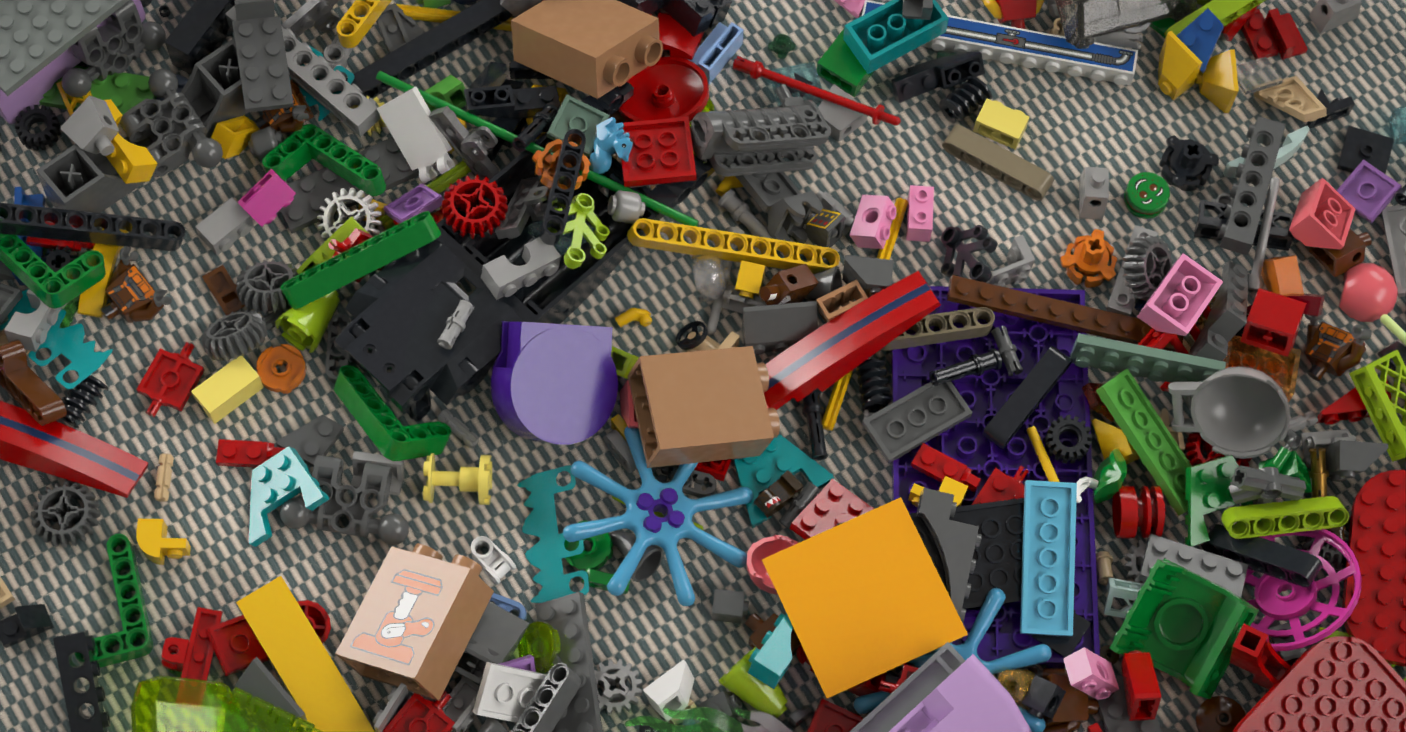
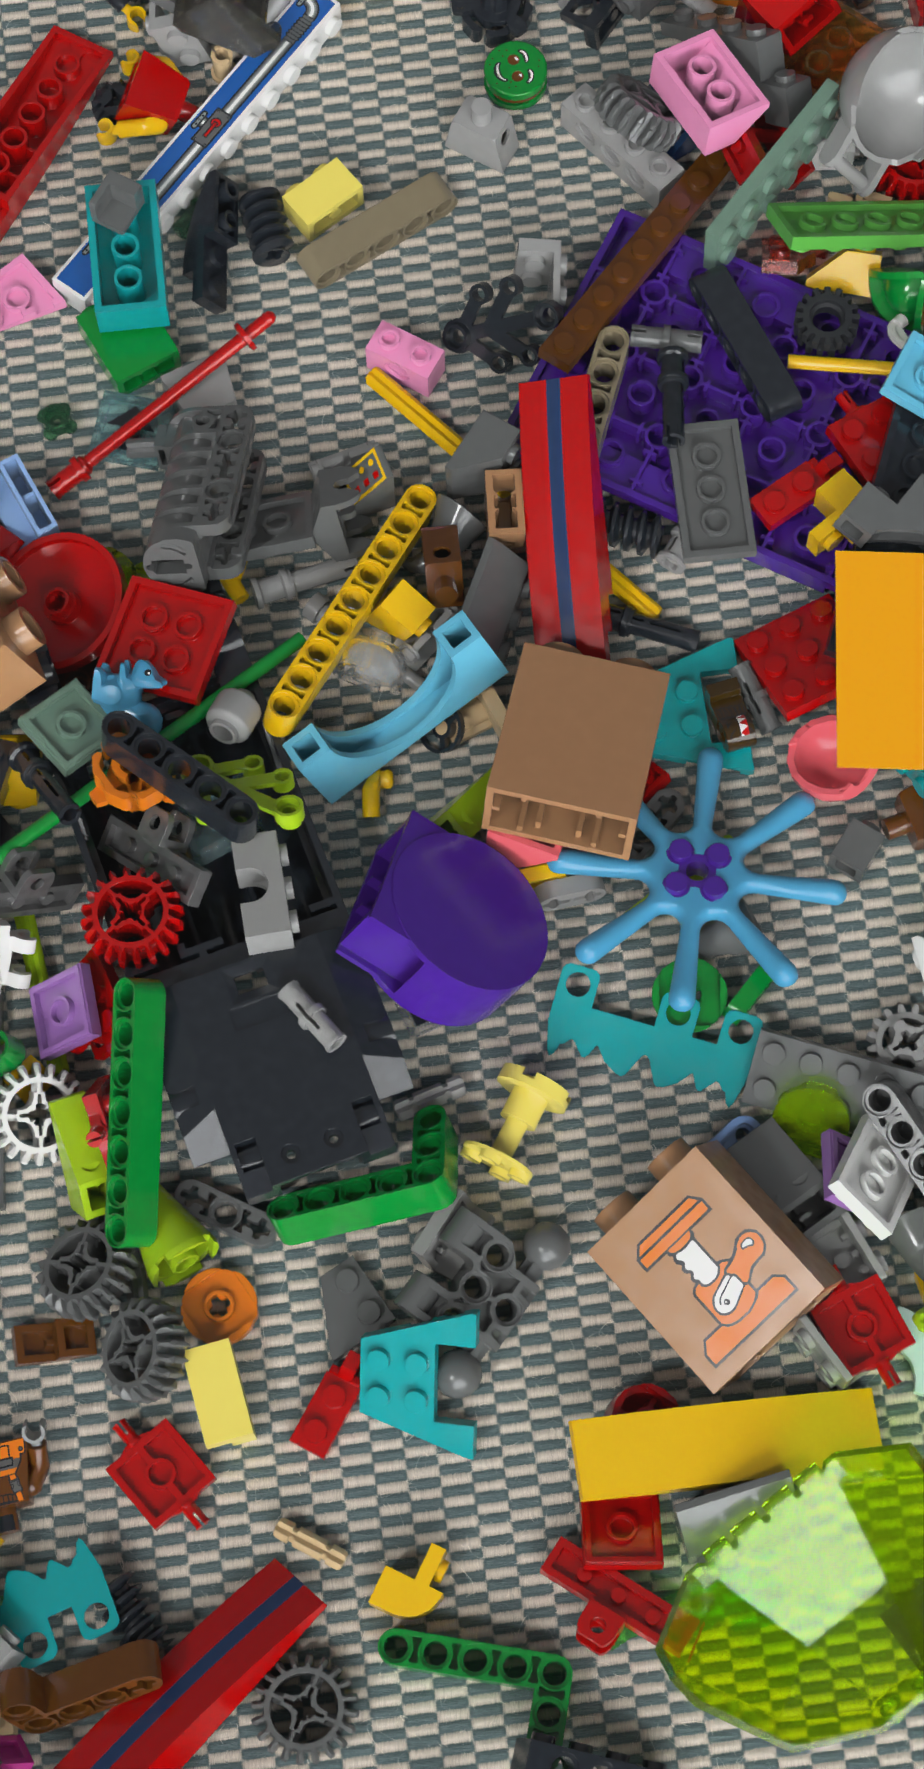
camera: 60 degrees left, 5 degrees up
(495, 562) = (656, 1129): white piece -> none
(635, 284) = (344, 759): none -> medium azure arch
(873, 221) = (371, 414): bright pink brick -> none
(1091, 258) = (574, 181): orange piece -> none

